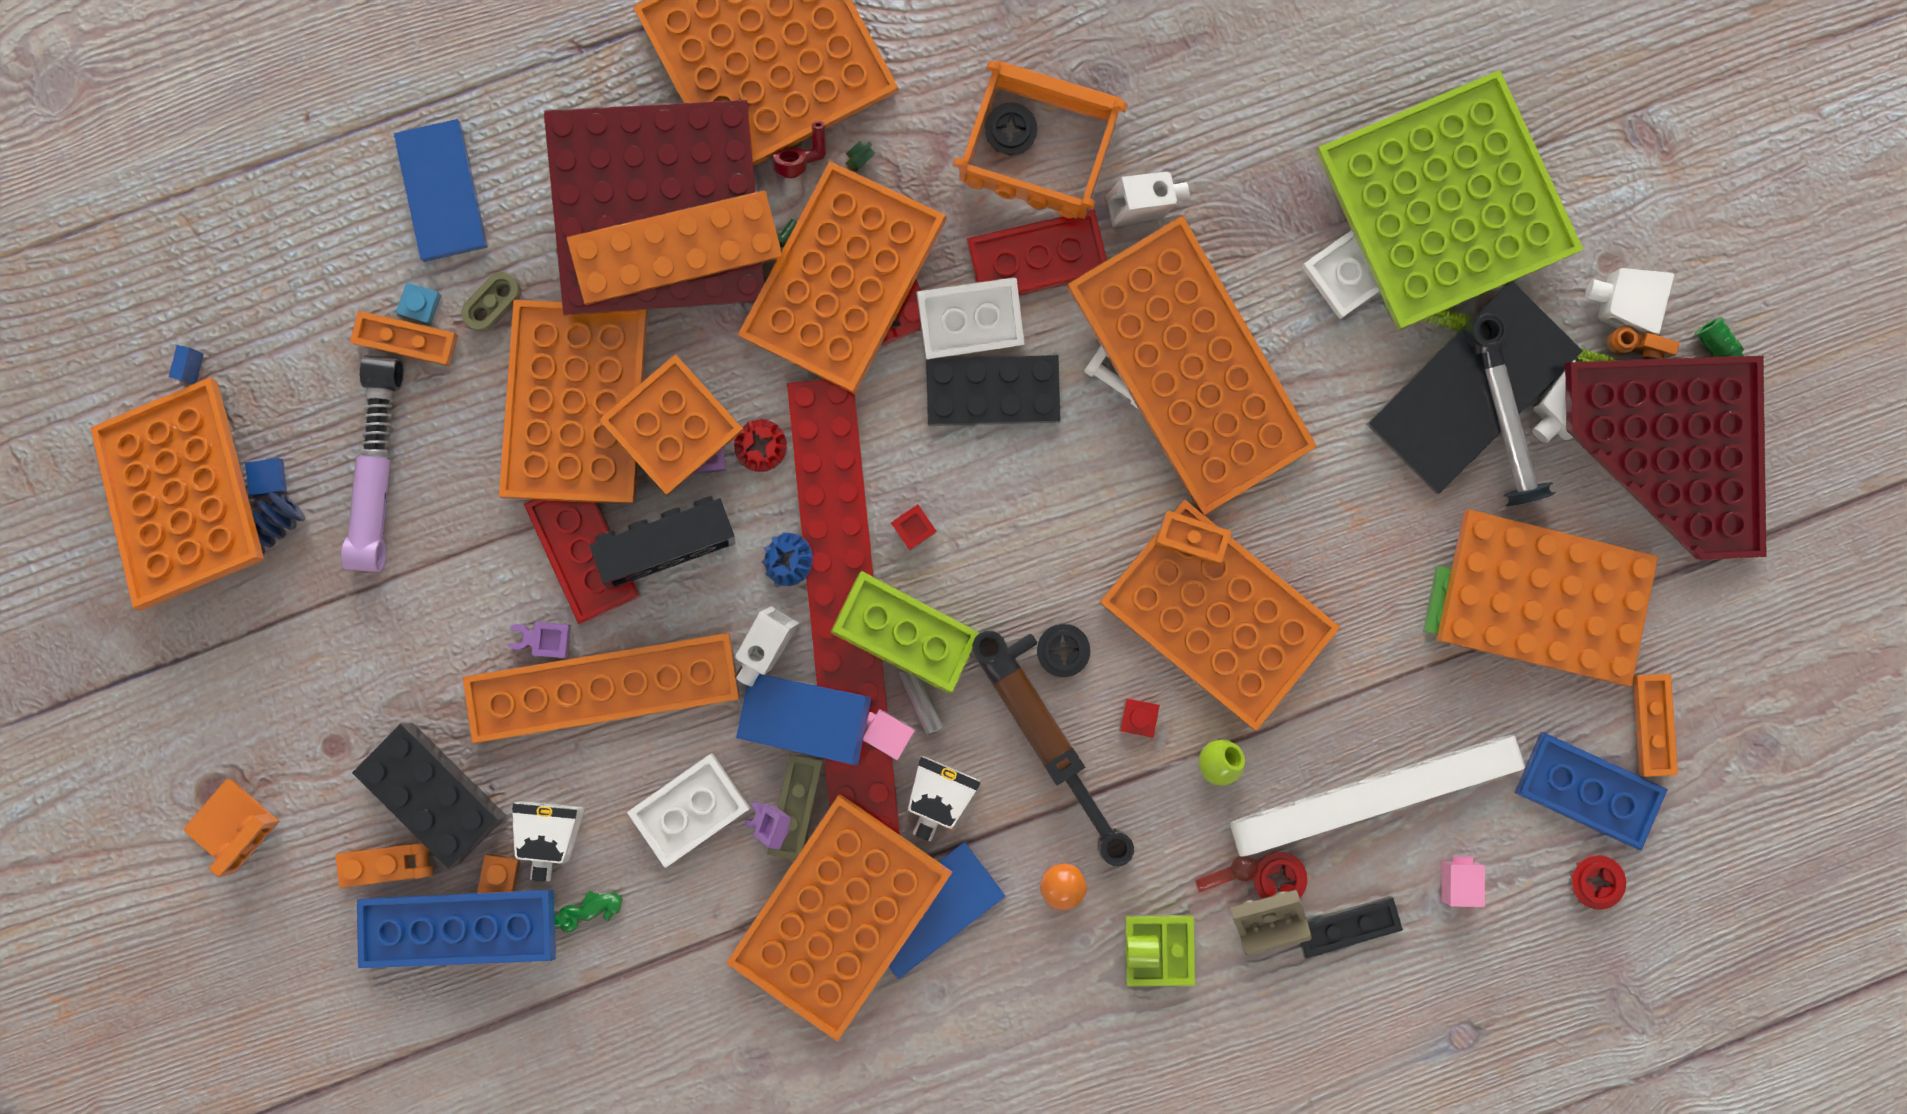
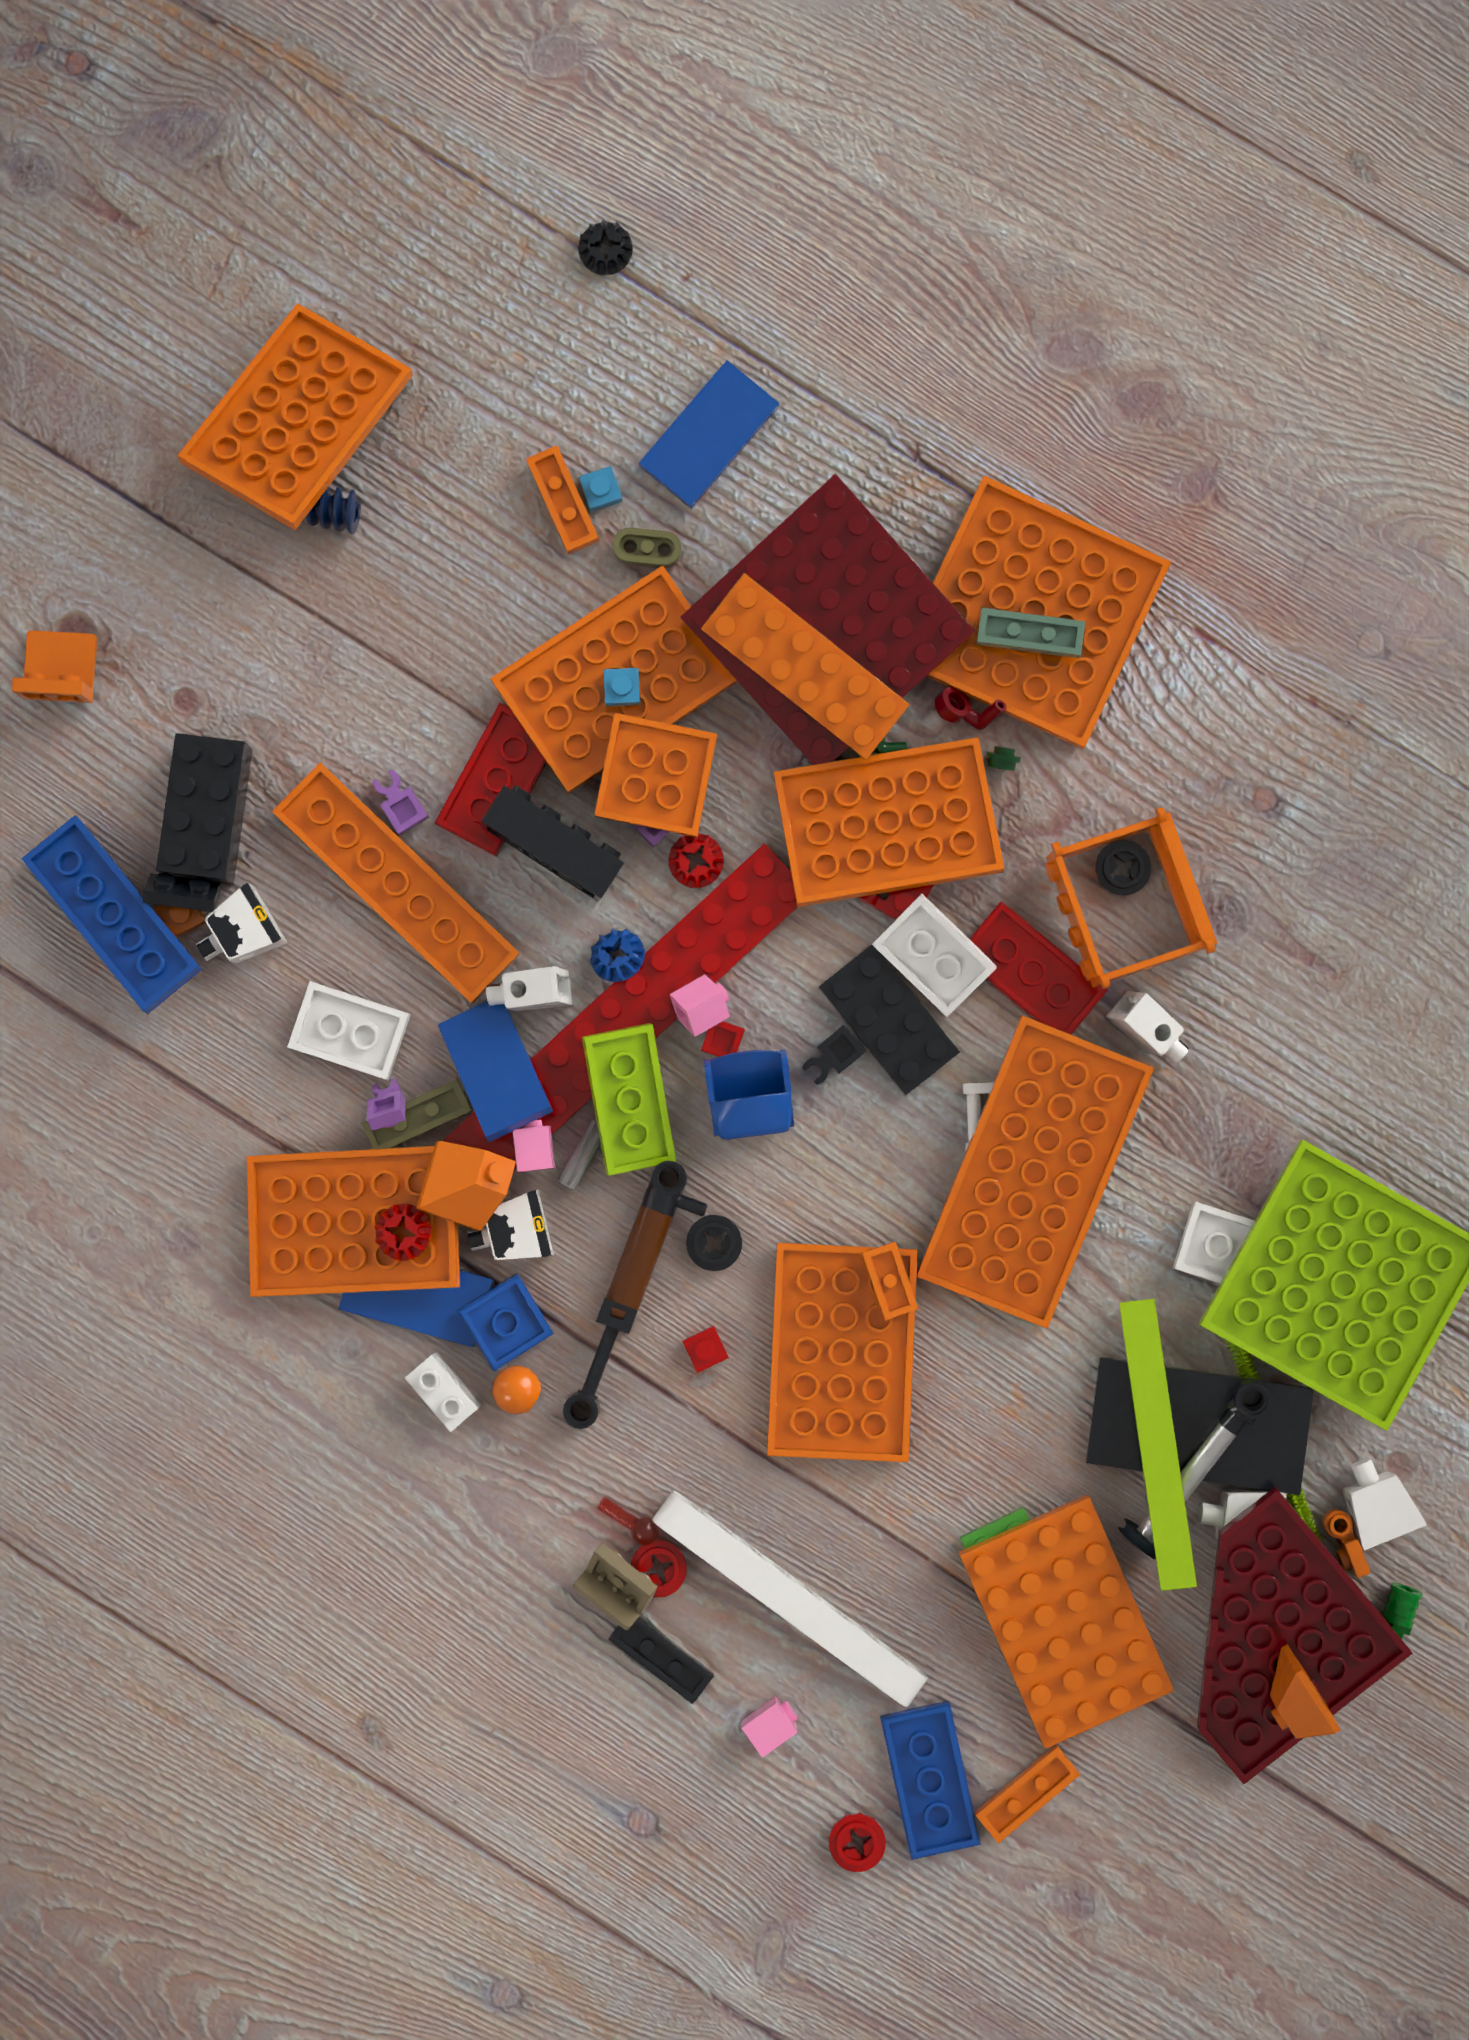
camera: 55 degrees right, 0 degrees up
(186, 365) = (406, 340): blue tile -> none
(235, 175) = (617, 257): none -> black gear
(265, 477) = (363, 475): blue tile -> none
(365, 545) = (368, 599): piece -> none
(382, 865) = (118, 814): orange plate -> none
(480, 860) = (181, 892): none -> black plate
(583, 400) = (621, 687): none -> dark azure plate
(592, 906) = (214, 1011): green animal -> none
(780, 60) = (1030, 632): none -> sand green plate
(874, 523) = (700, 1005): none -> bright pink brick
(876, 807) = (465, 1184): none -> orange slope
(877, 868) = (415, 1221): none -> red gear
(971, 536) = (749, 1093): none -> blue piece
(989, 446) = (838, 1052): none -> black plate
(1004, 856) = (505, 1322): none -> blue plate
(1023, 944) = (443, 1391): none -> white brick
(1160, 950) = (523, 1510): lime plate -> none
(1221, 762) = (718, 1445): lime piece -> none
(1469, 428) = (1157, 1445): none -> lime tile
(1740, 465) = (1298, 1700): none -> orange slope

